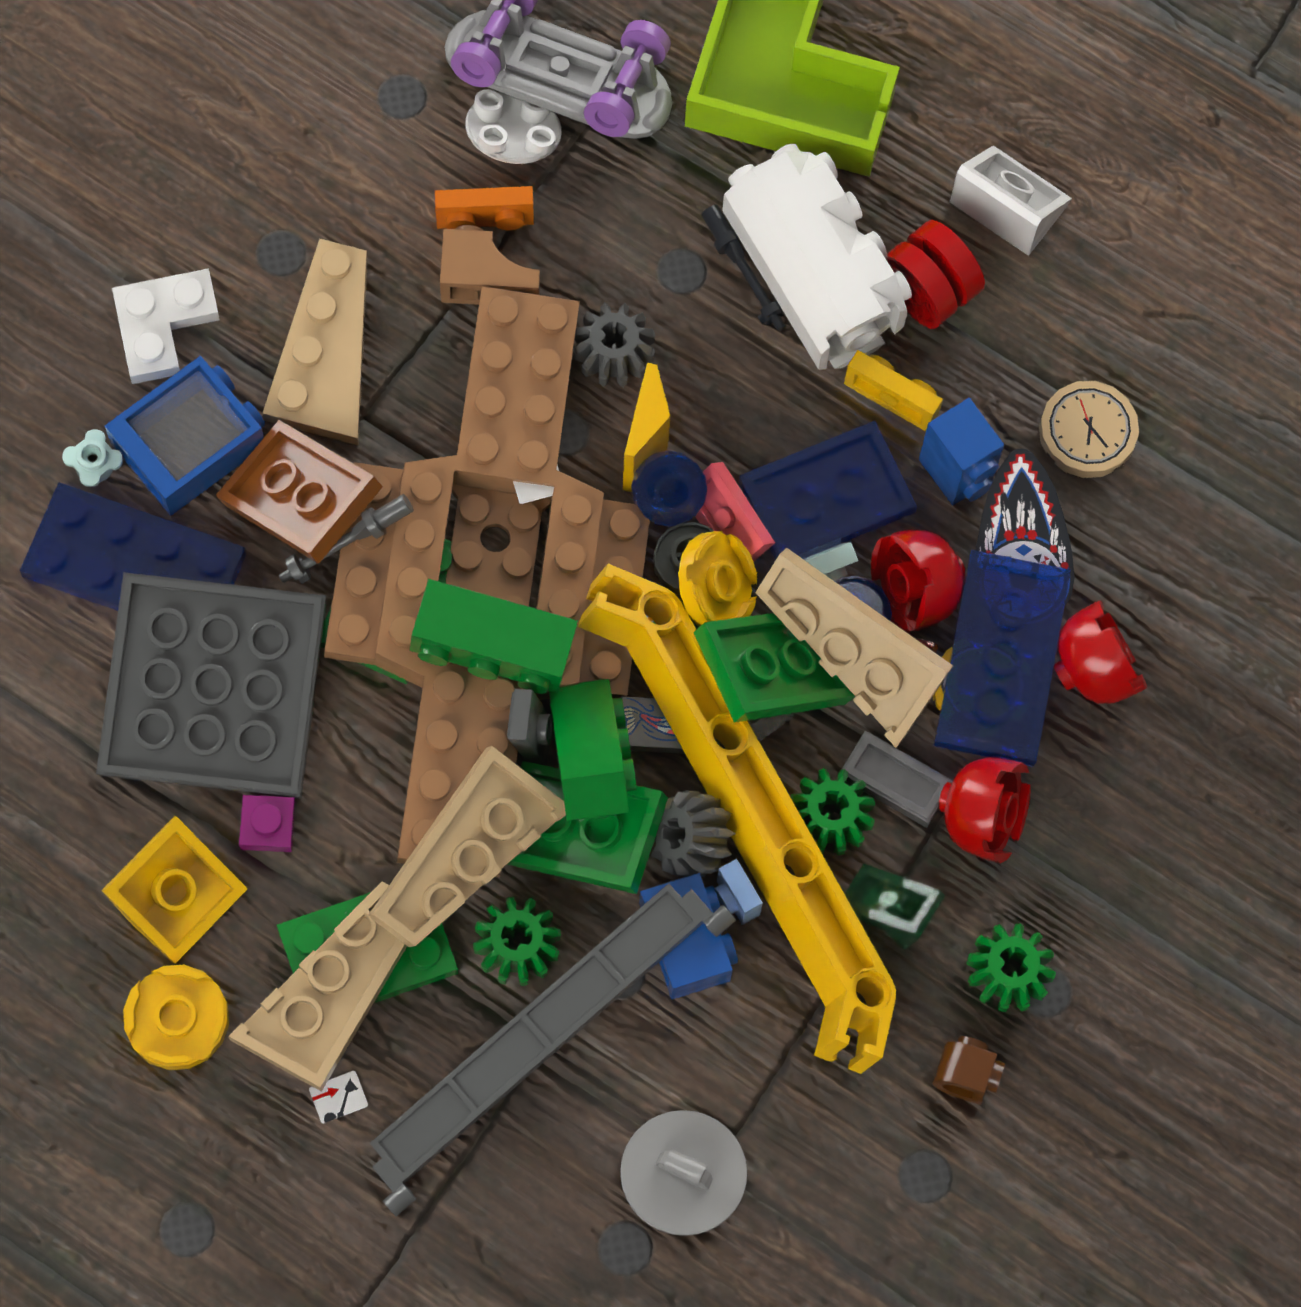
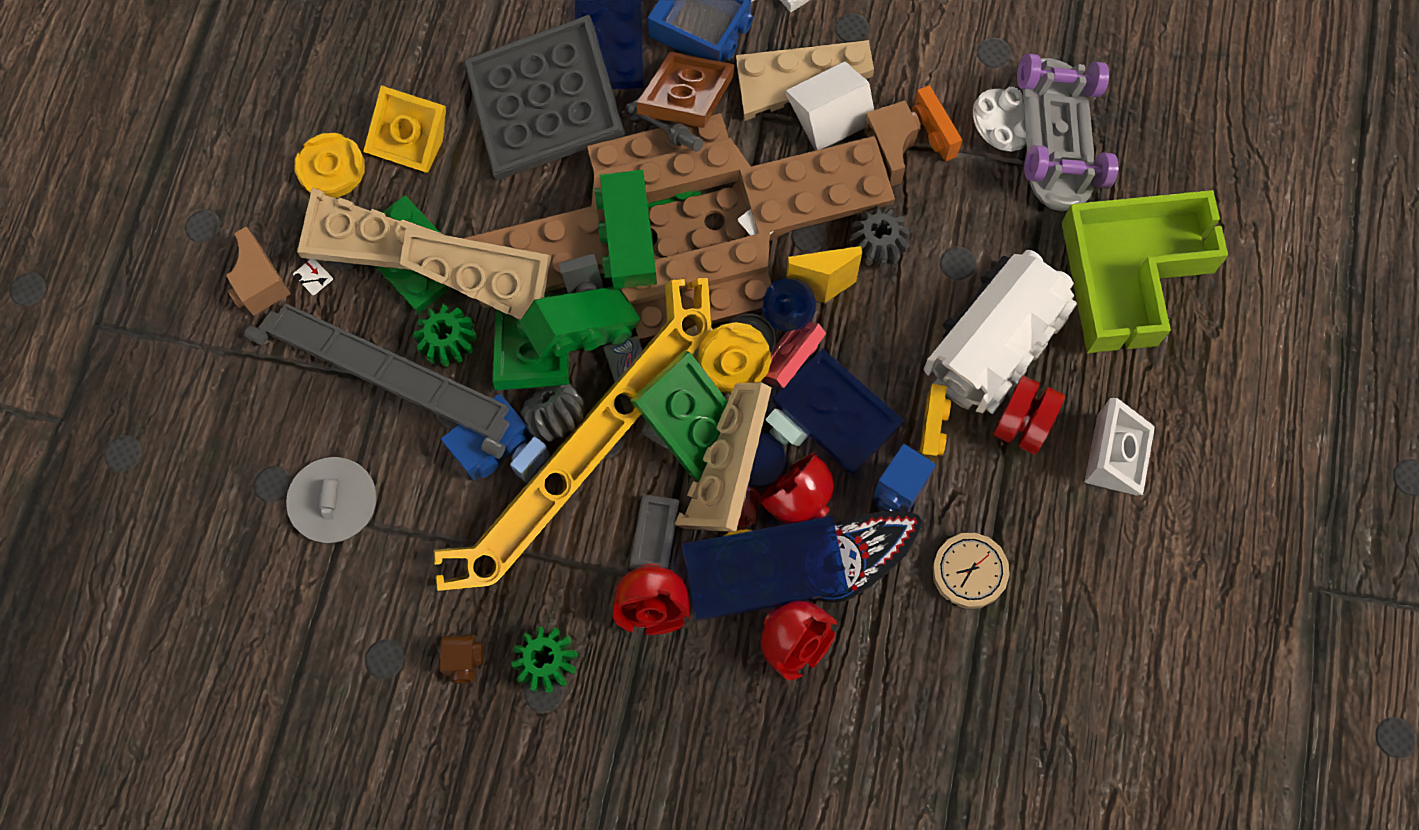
camera: 75 degrees right, 0 degrees up
(267, 823) = (471, 166): magenta plate -> none
(315, 1164) = (254, 277): none -> medium nougat arch
(397, 321) = (832, 104): none -> white slope
(847, 798) = (603, 509): green gear -> none
(893, 903) = (557, 560): clear green slope -> none

